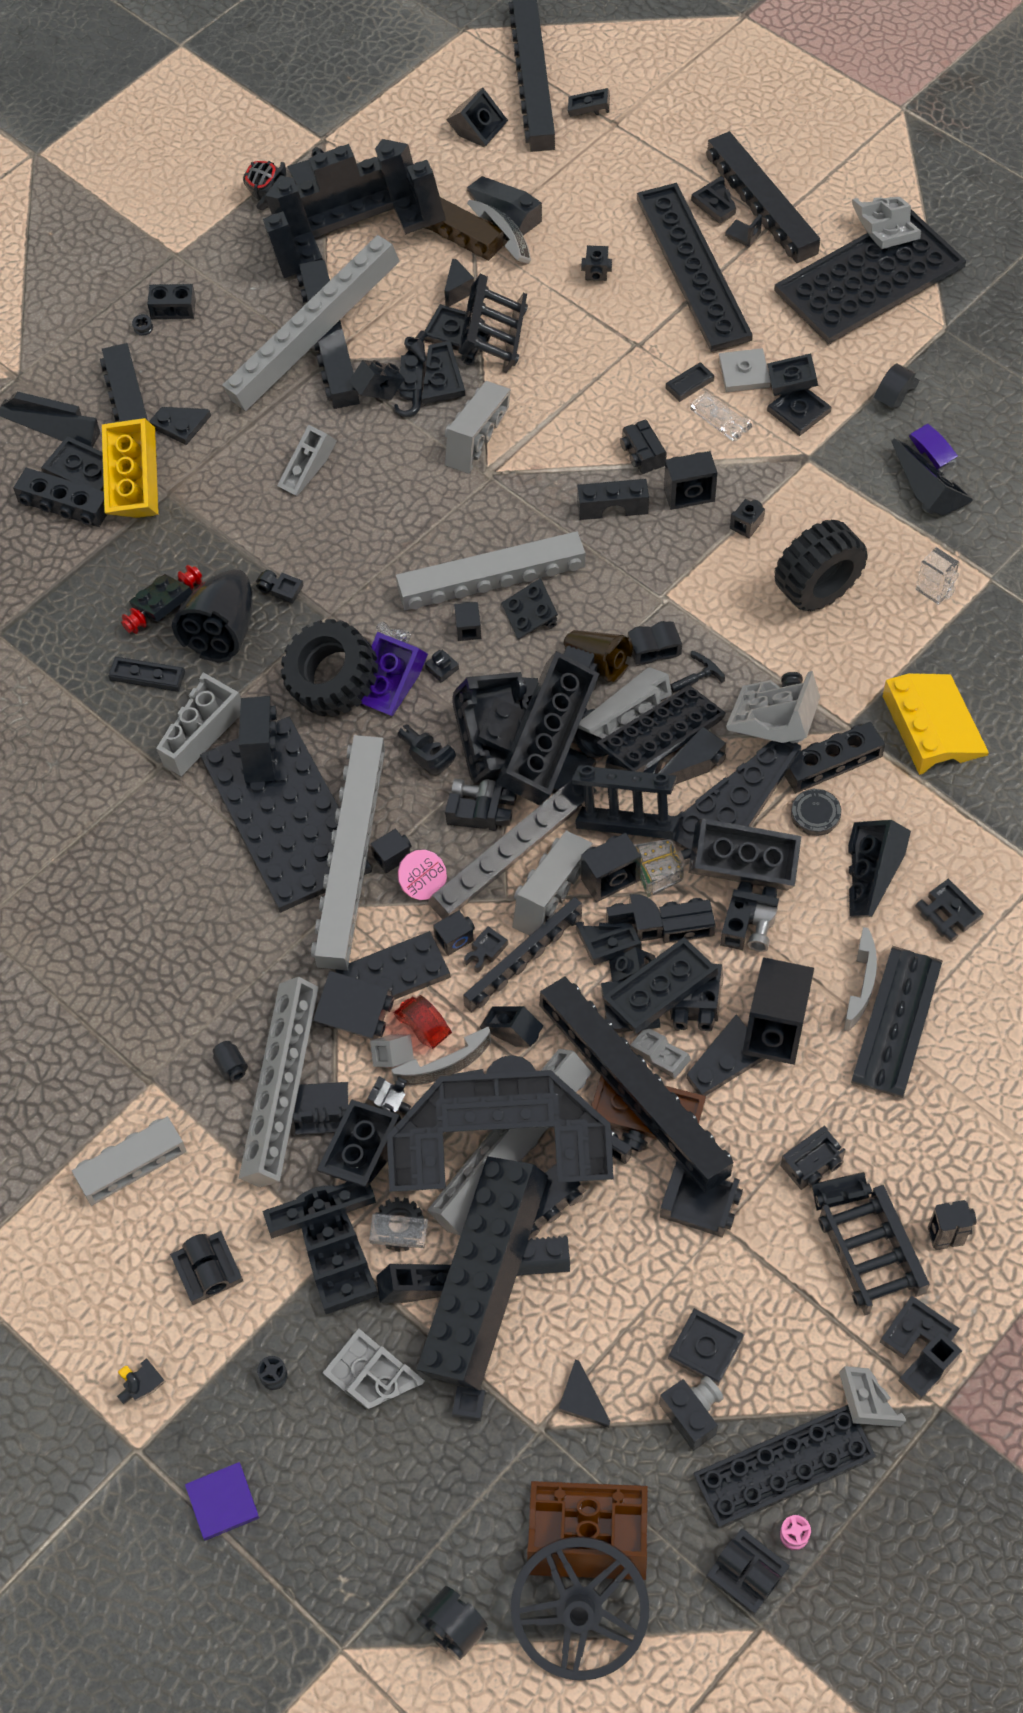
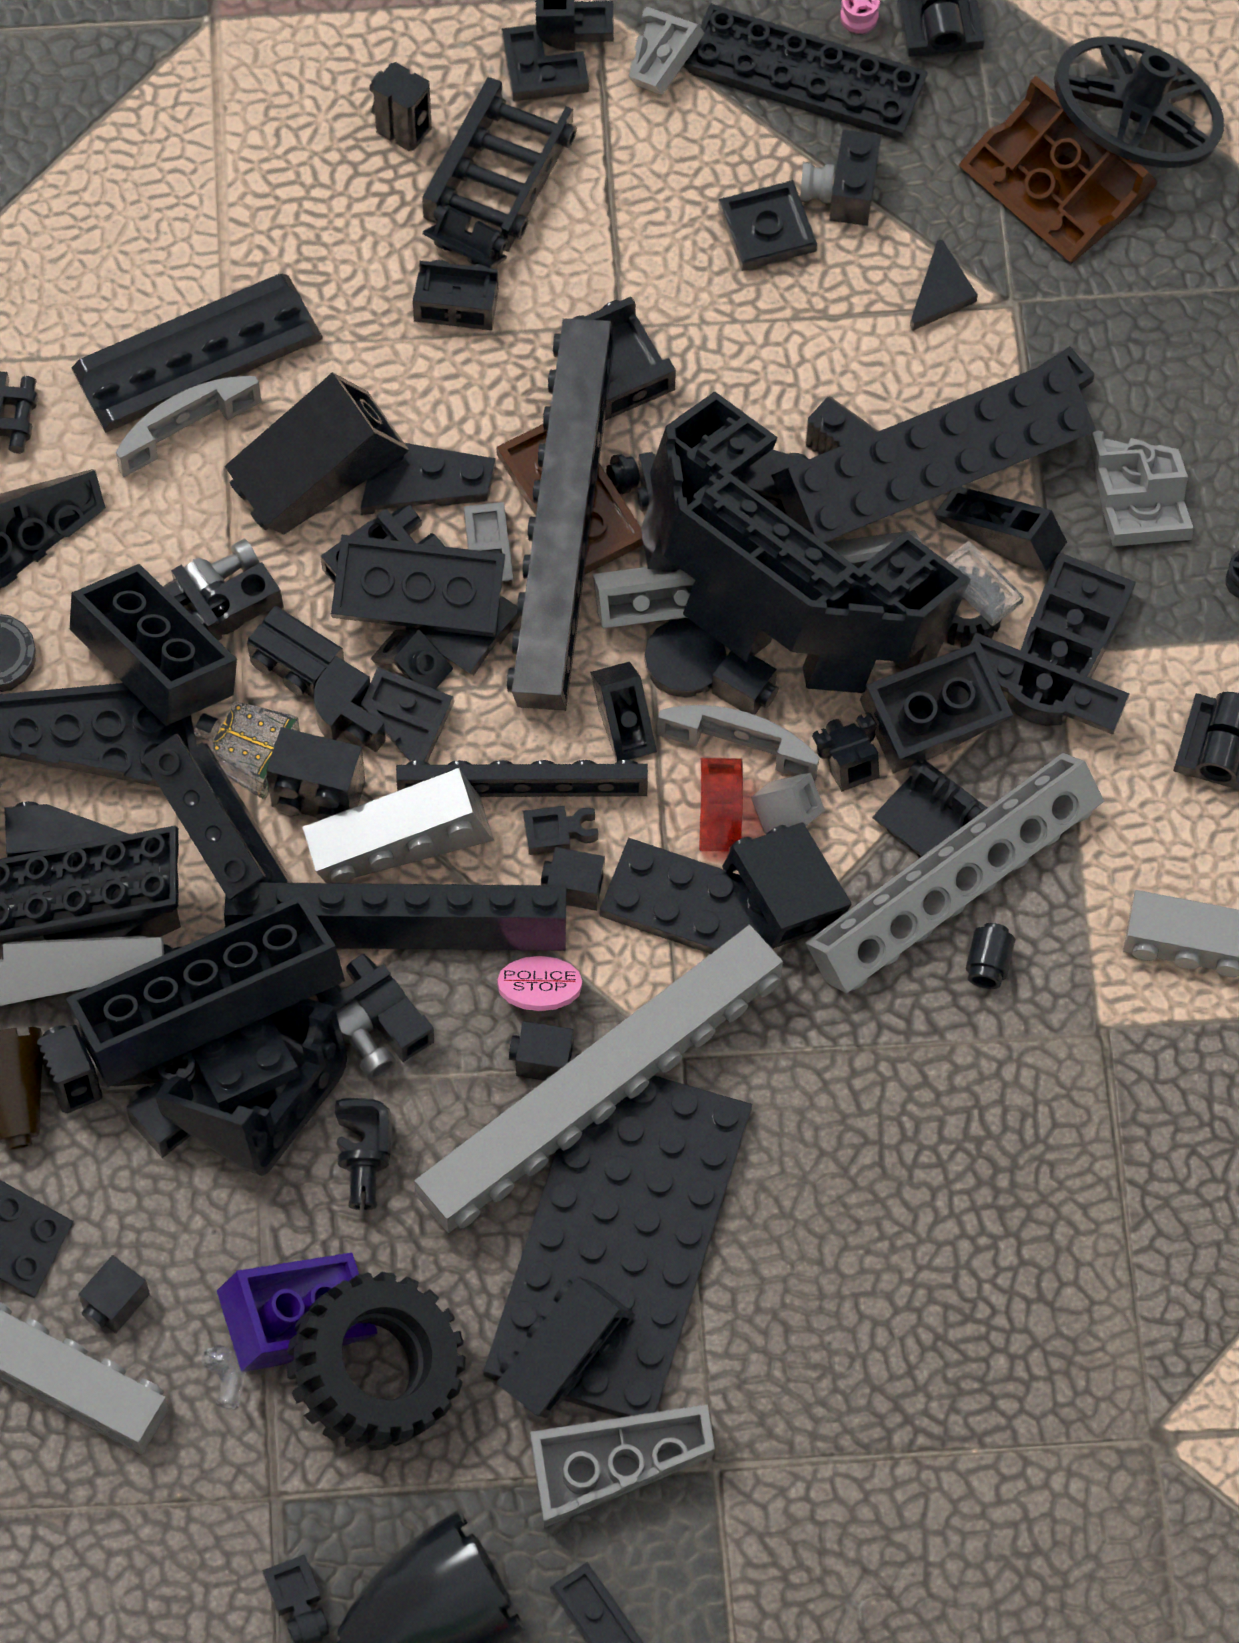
camera: 140 degrees left, 5 degrees up
(441, 665) = (210, 1266): black tile -> none

